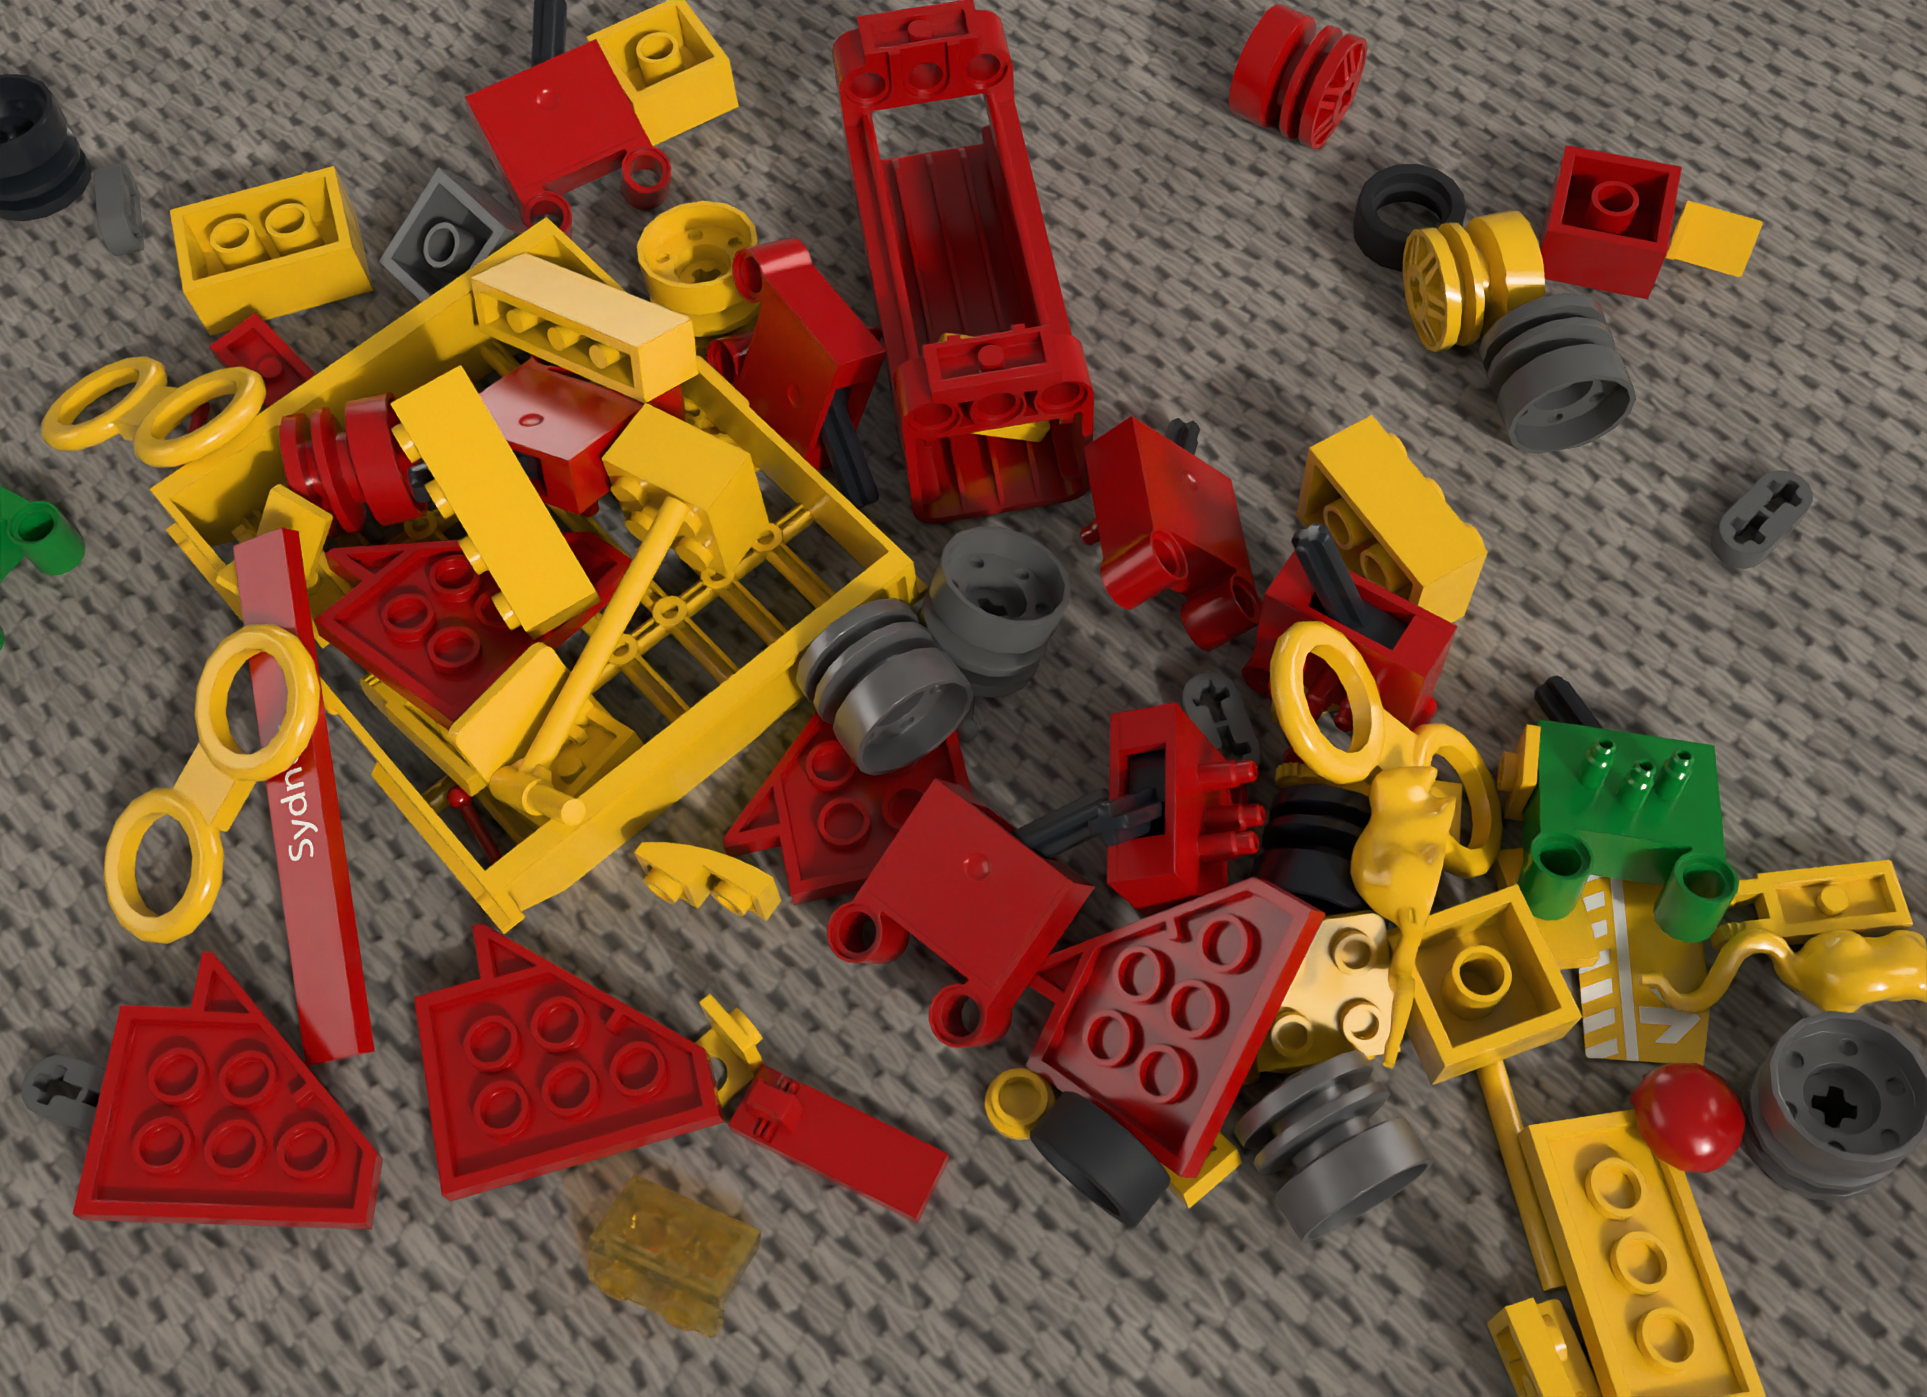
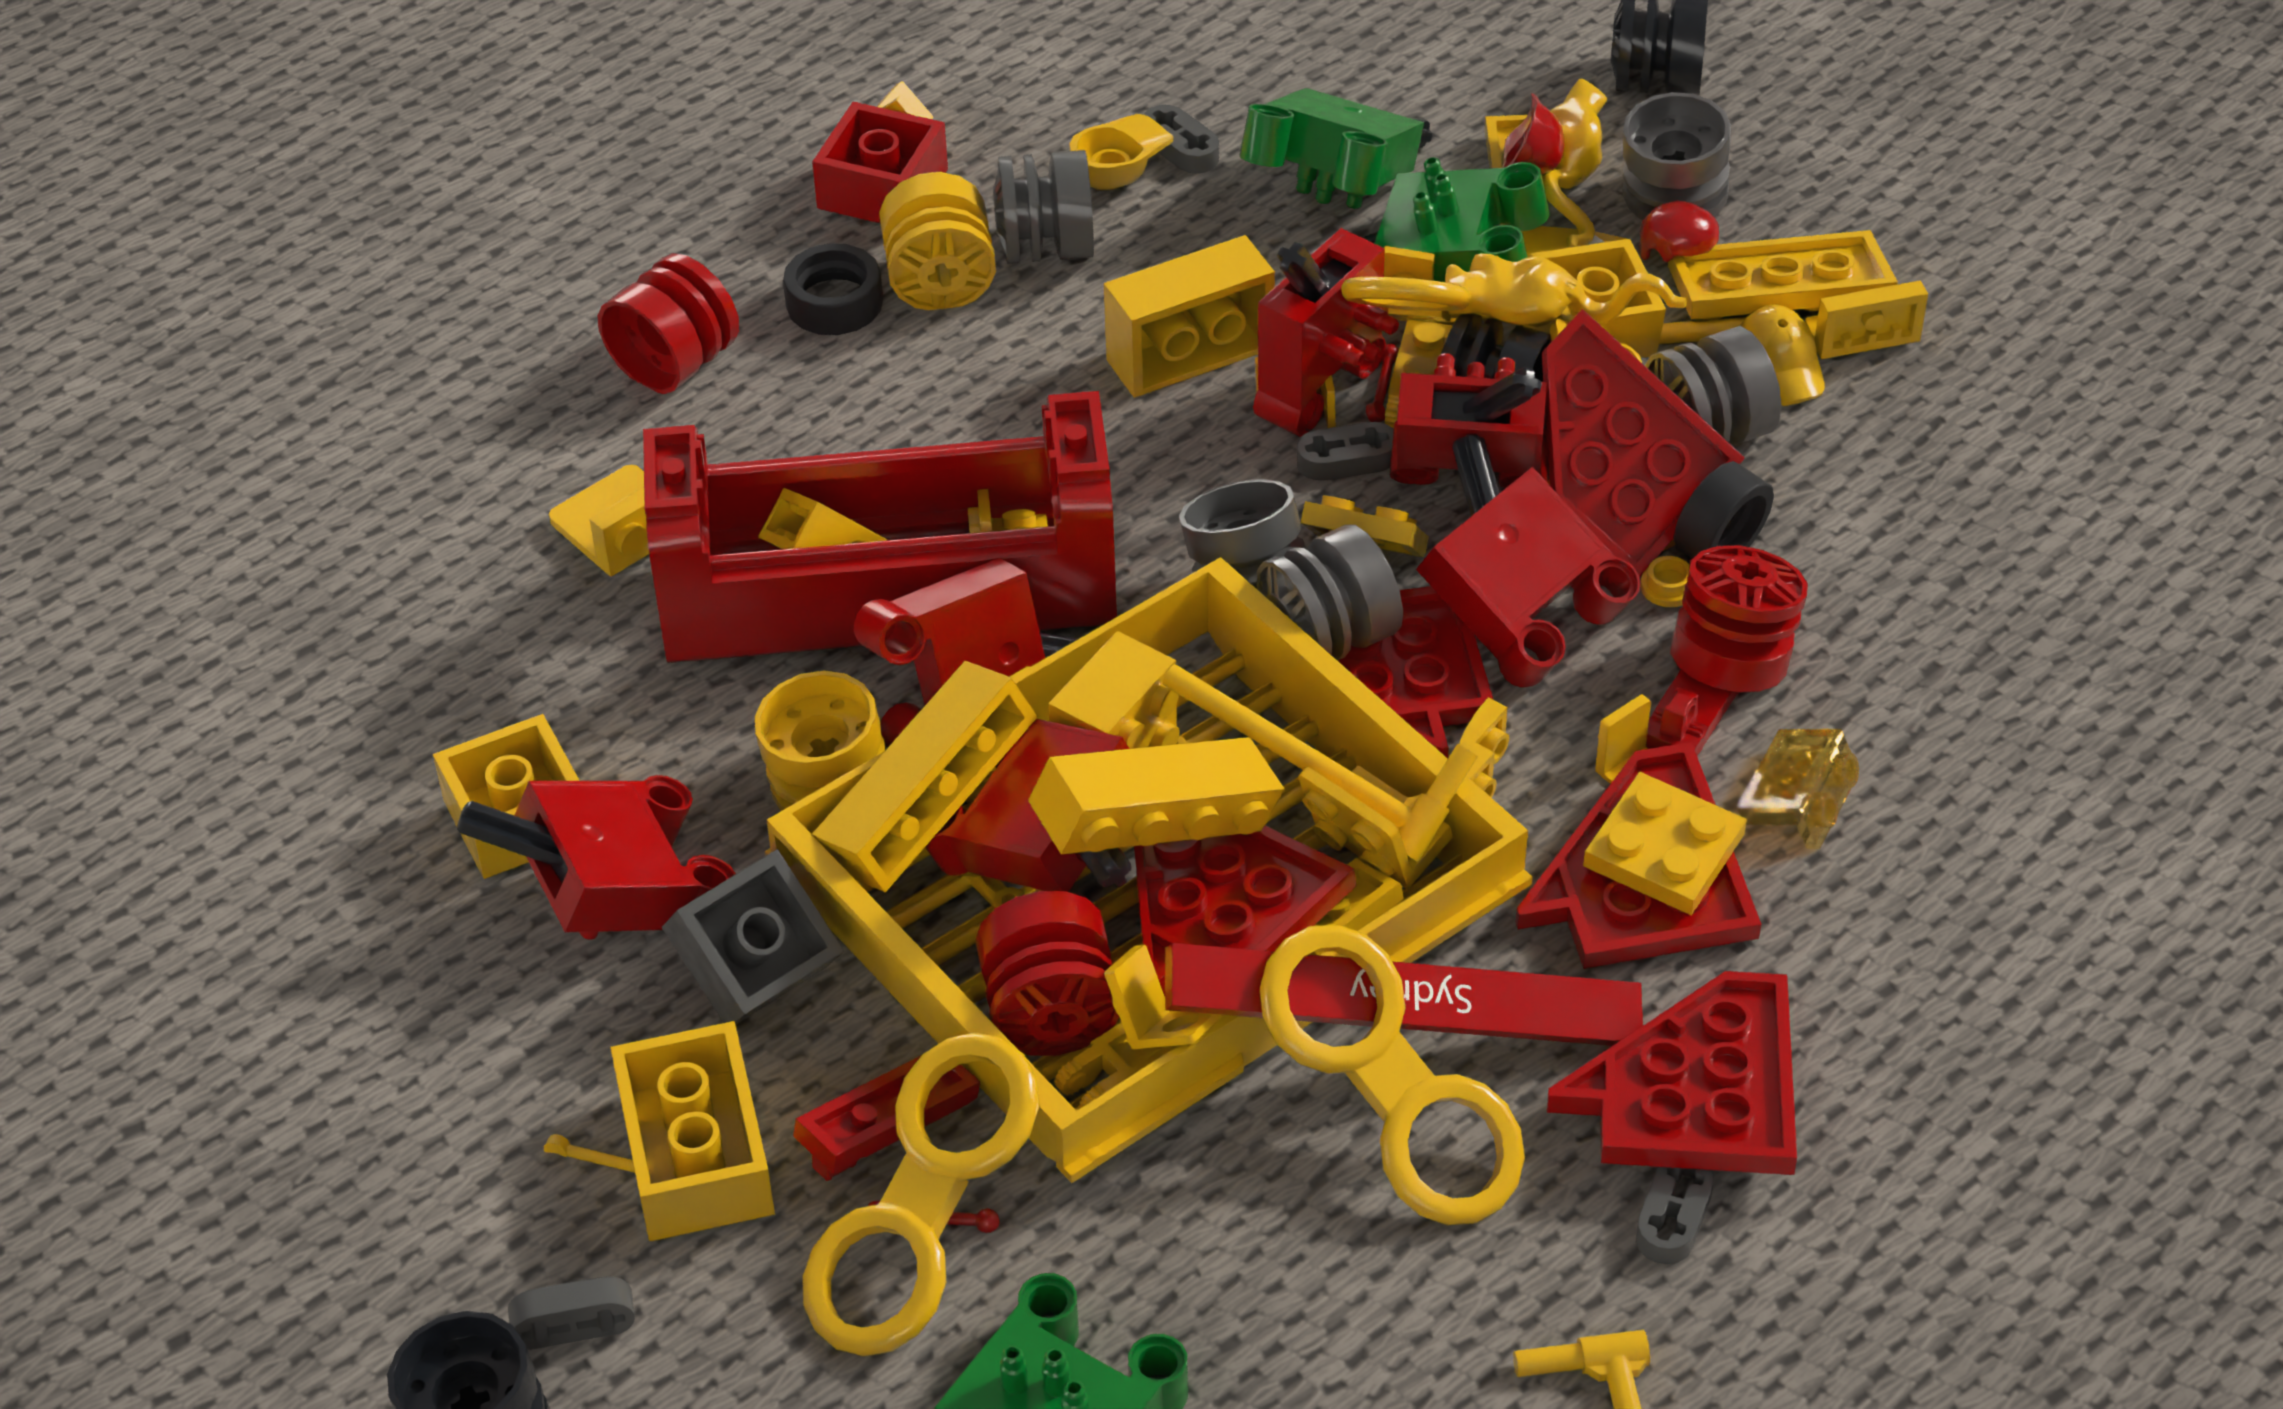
camera: 90 degrees left, 15 degrees down
(551, 1079) = (1665, 843): none -> yellow plate
(867, 1187) = (1738, 618): none -> red wheel
(948, 227) = (807, 523): none -> yellow torso
(1044, 734) = (1388, 527): none -> yellow plate
(1056, 103) = (607, 520): none -> yellow bracket
(1171, 526) = (1187, 428): red piece -> none
(1449, 1278) = (1790, 350): none -> yellow cap
(1702, 443) = (1120, 149): none -> yellow cap
(1752, 668) = (1344, 140): none -> green piece
(1806, 909) = (1536, 139): none -> red cap

